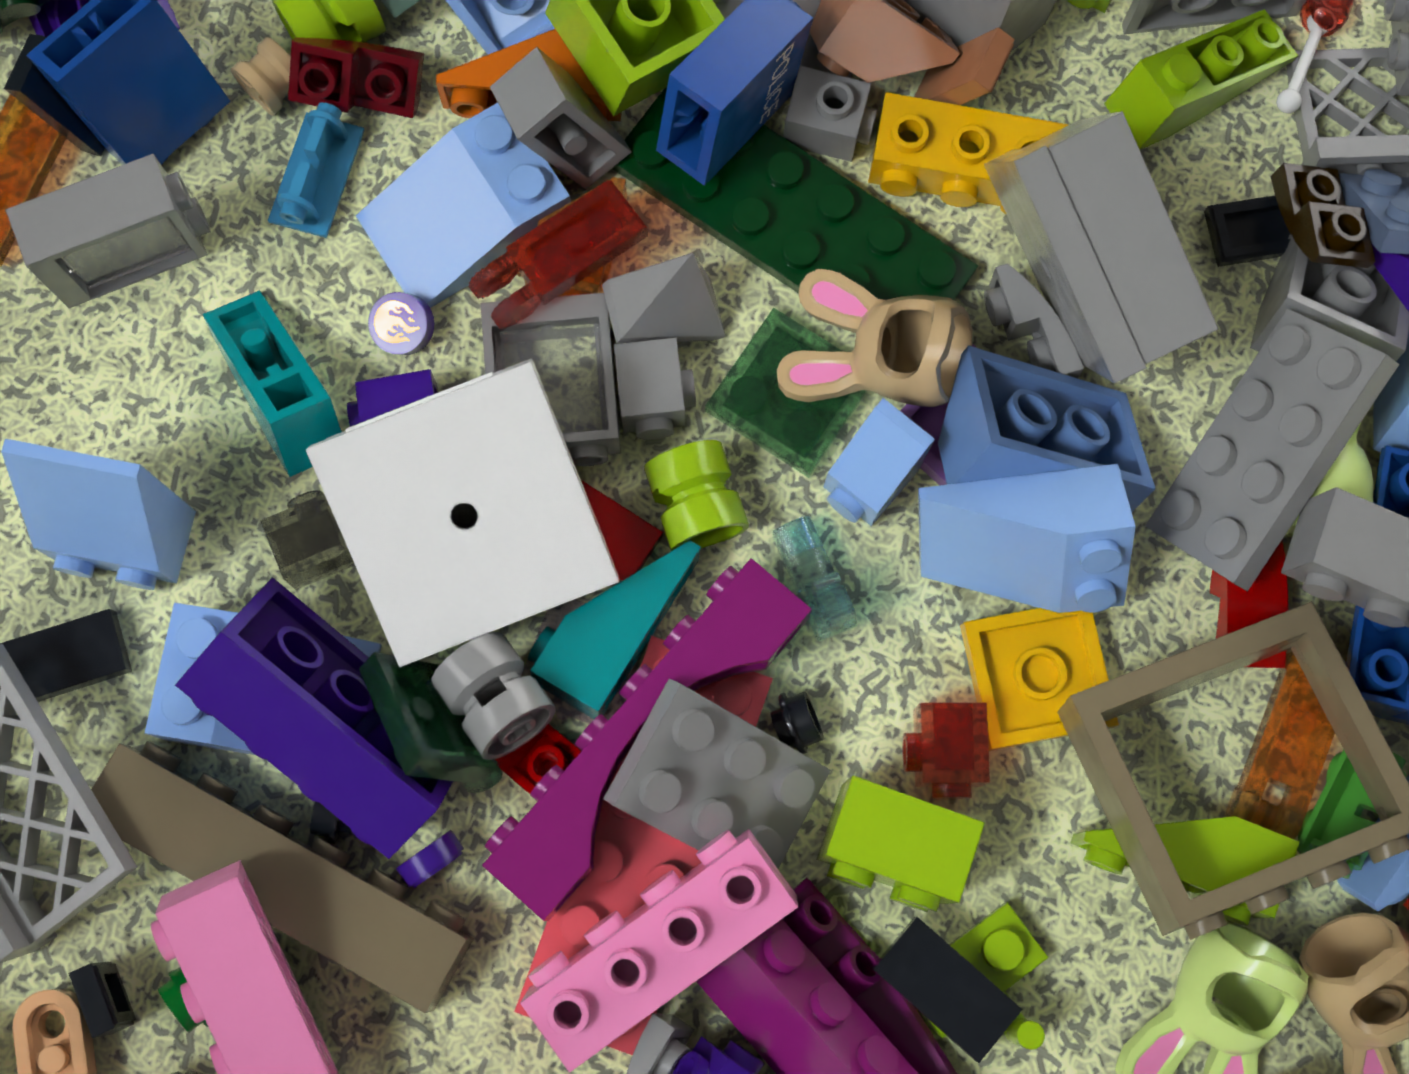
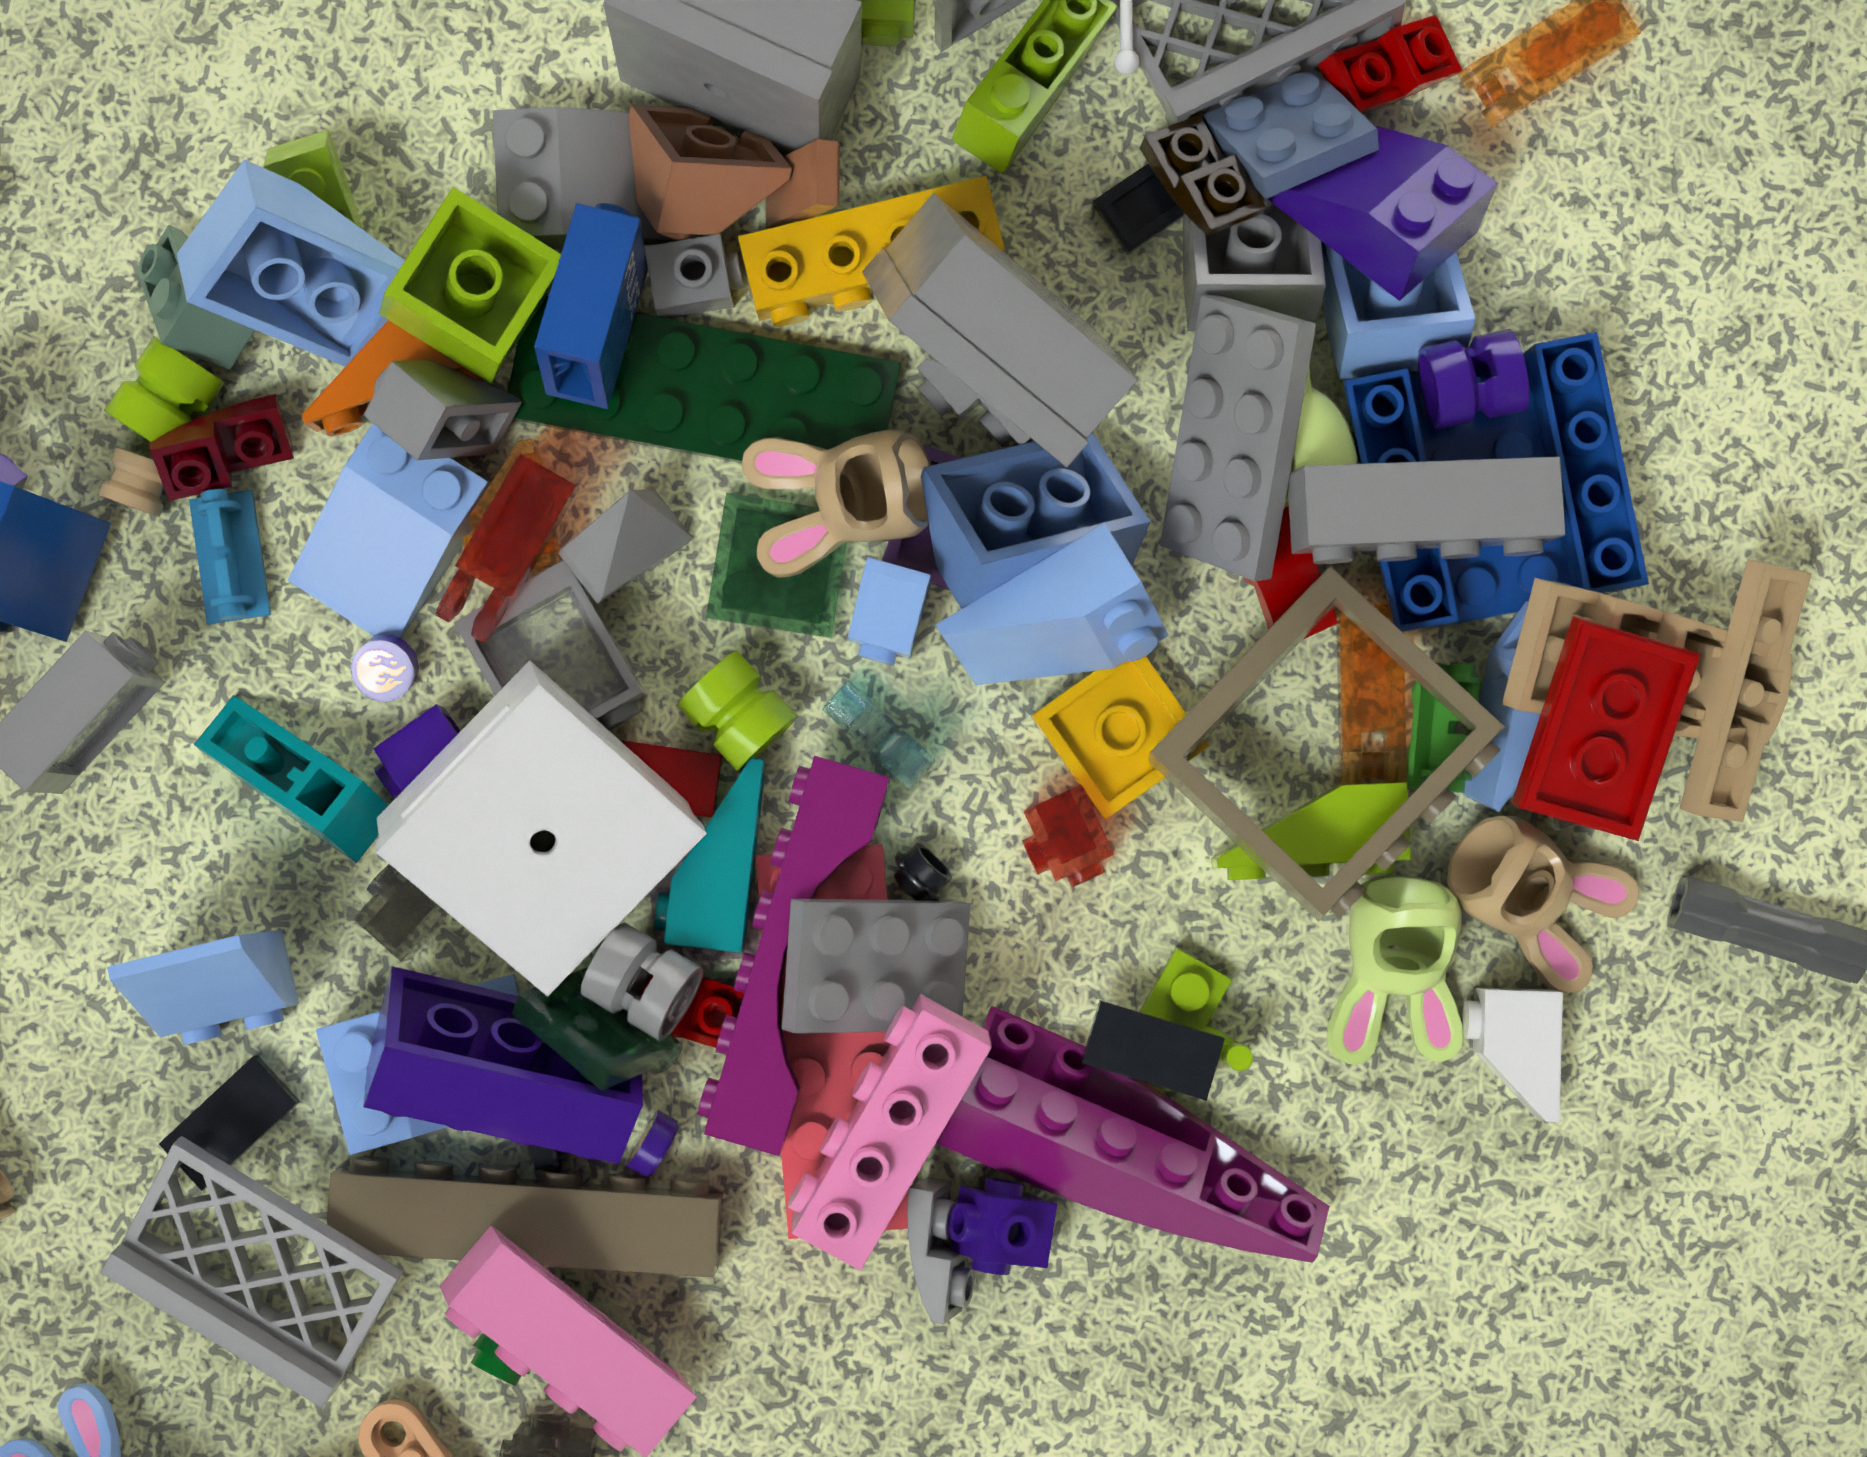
camera: 25 degrees left, 10 degrees up
(102, 998) = (427, 1392): black tile -> none
(652, 387) = (649, 625): light grey brick -> none
(899, 843) = (1057, 947): lime brick -> none

